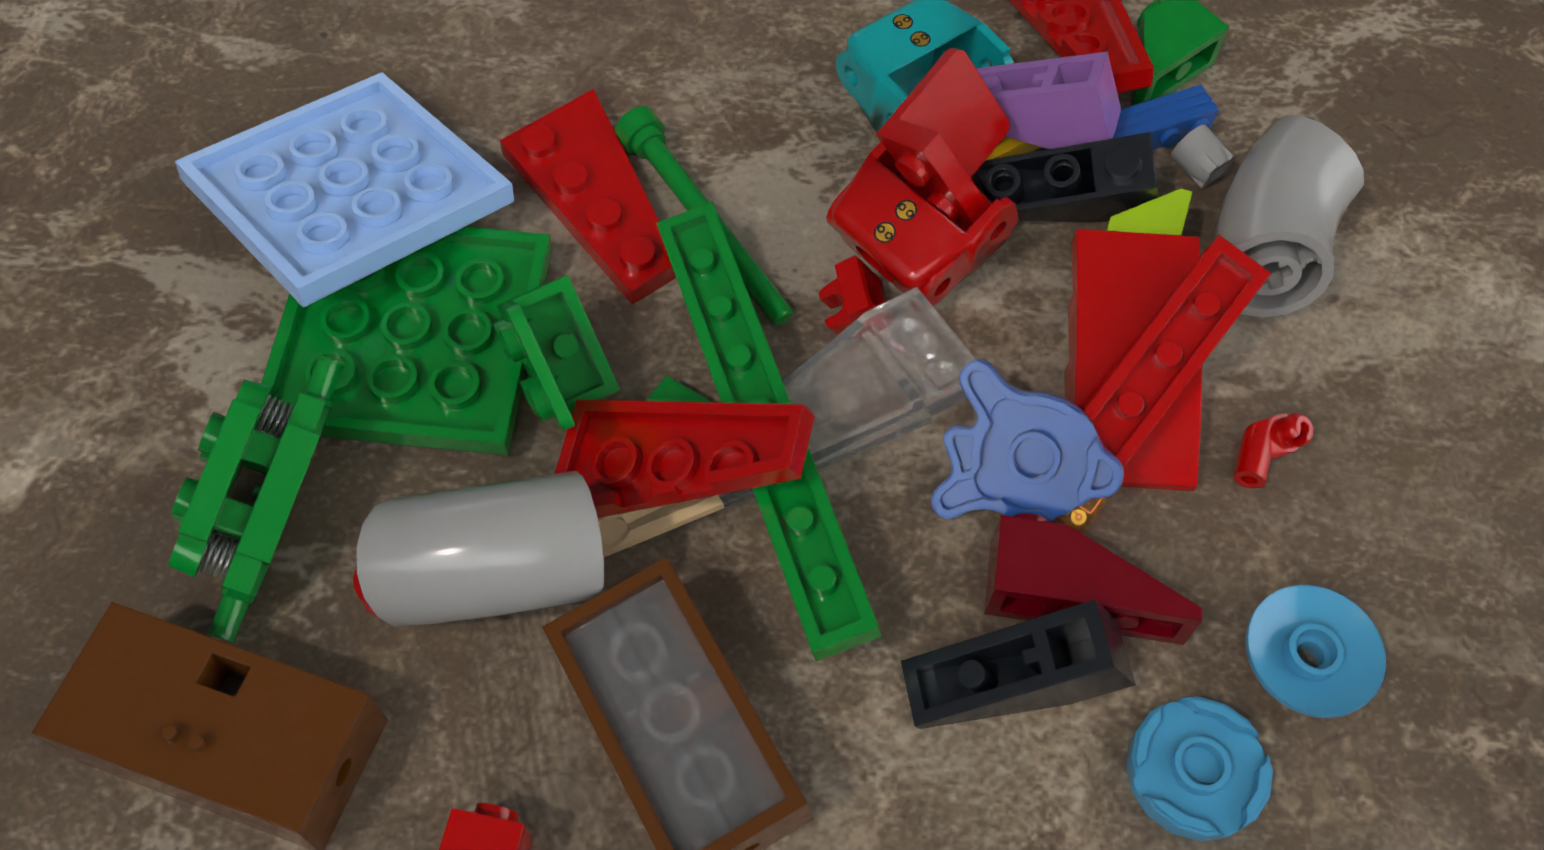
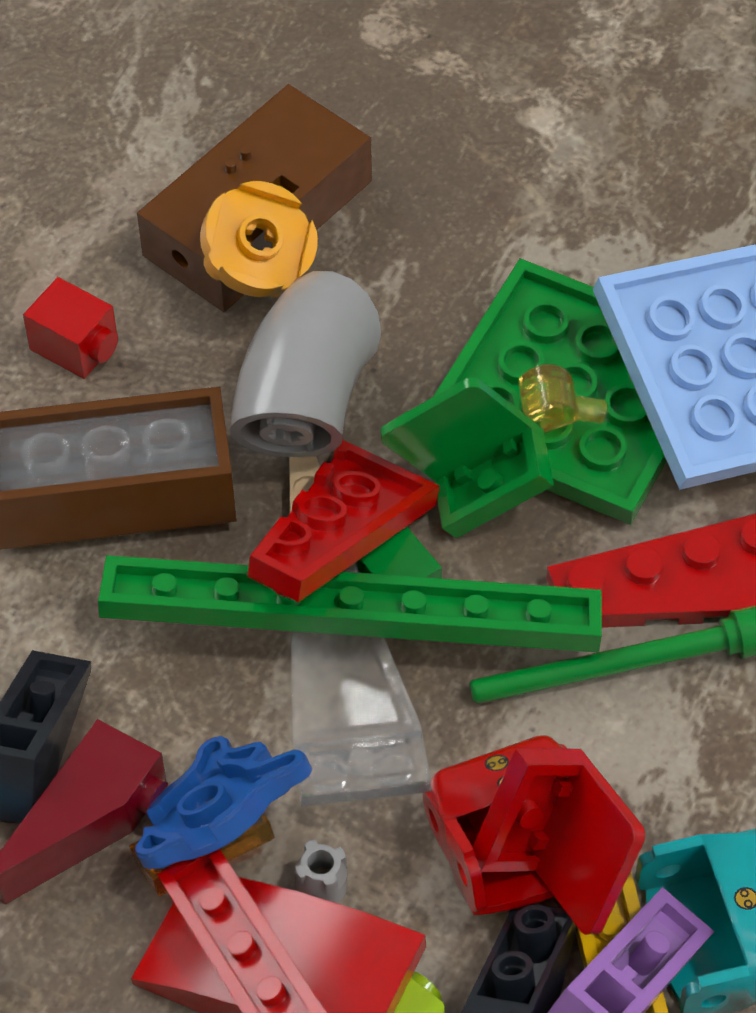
camera: 115 degrees right, 5 degrees down
(206, 506) = (450, 235): green piece -> none
(312, 688) = (233, 258): none -> light orange plate
(454, 308) = (551, 398): none -> clear yellow piece
(856, 289) = (454, 741): red tile -> none
(1027, 363) = (328, 886): none -> light grey hose

